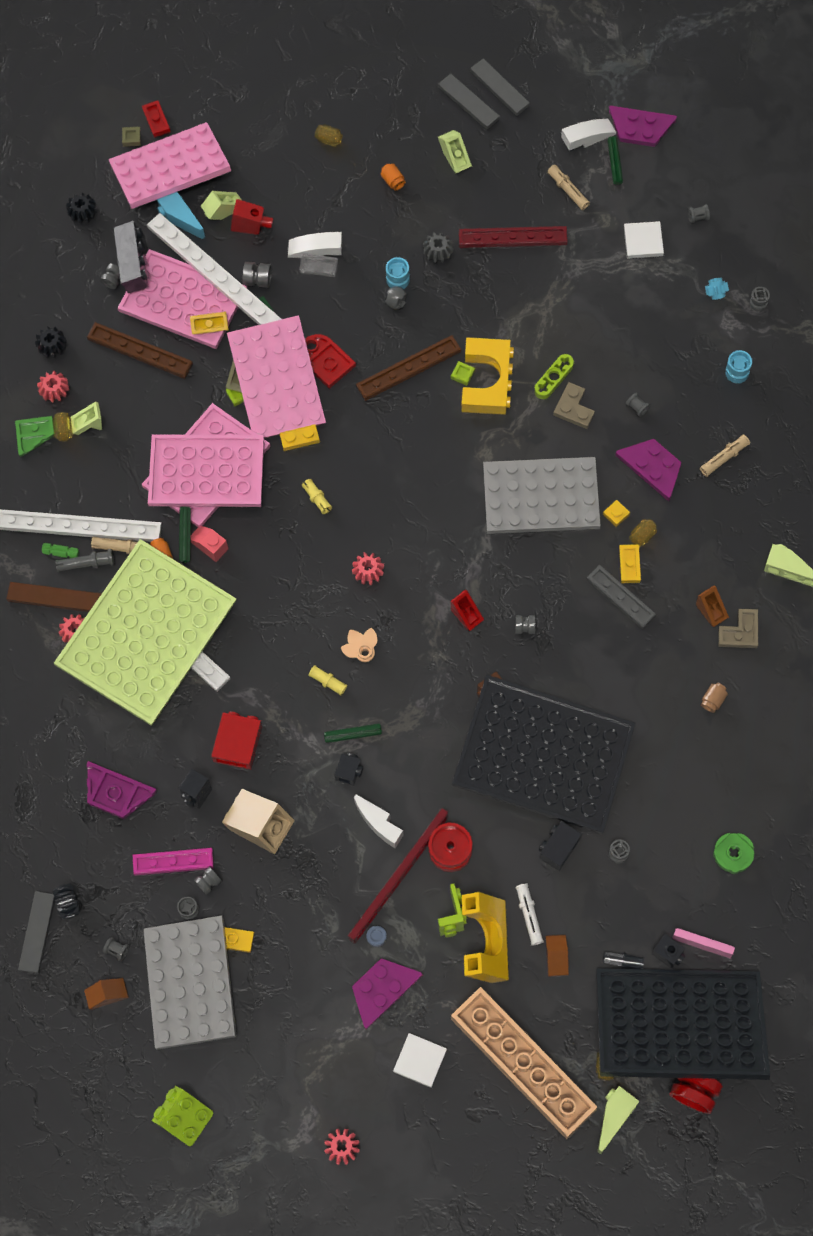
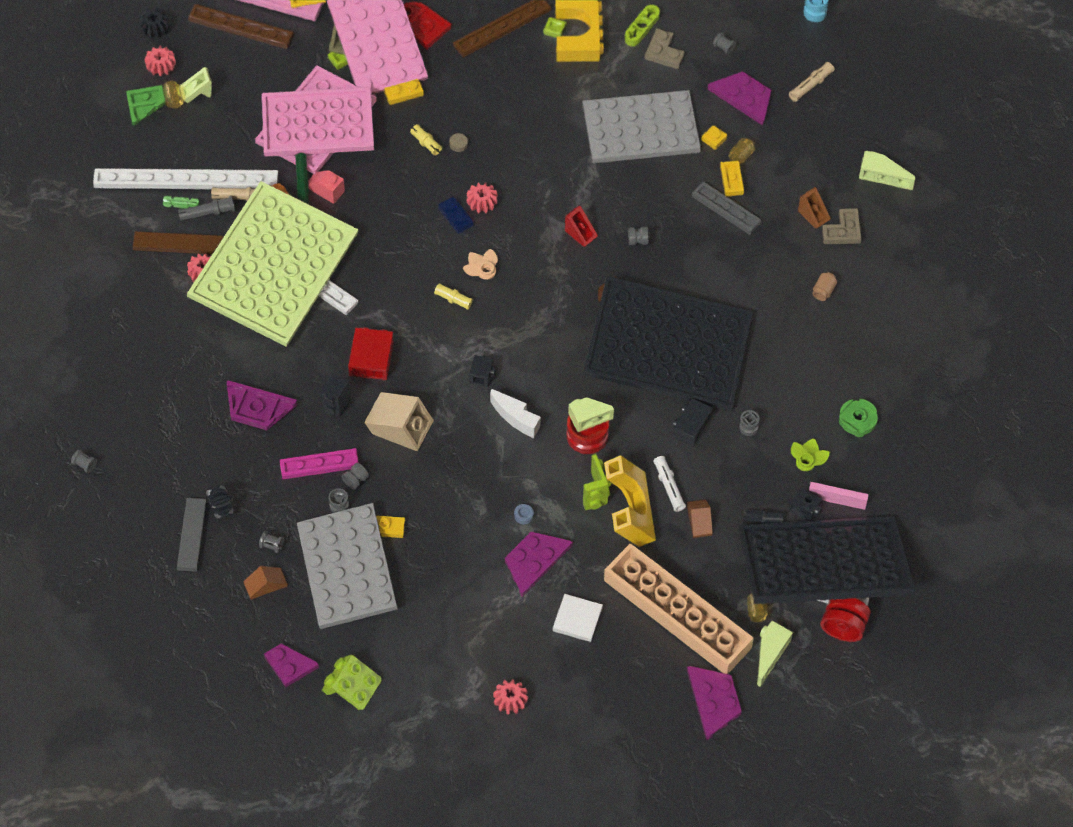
camera: 10 degrees left, 10 degrees down
(121, 1088) = (289, 664): none -> magenta wing
(339, 585) = (455, 215): none -> clear blue plate
(350, 501) = (458, 142): none -> dark tan tile
(352, 733) = (482, 340): dark green axle -> none
(396, 878) = (533, 467): dark red tile -> none
(451, 836) = (589, 413): none -> yellowish green slope
(552, 1165) = (714, 698): none -> magenta wing
(678, 889) = (808, 453): none -> lime plate

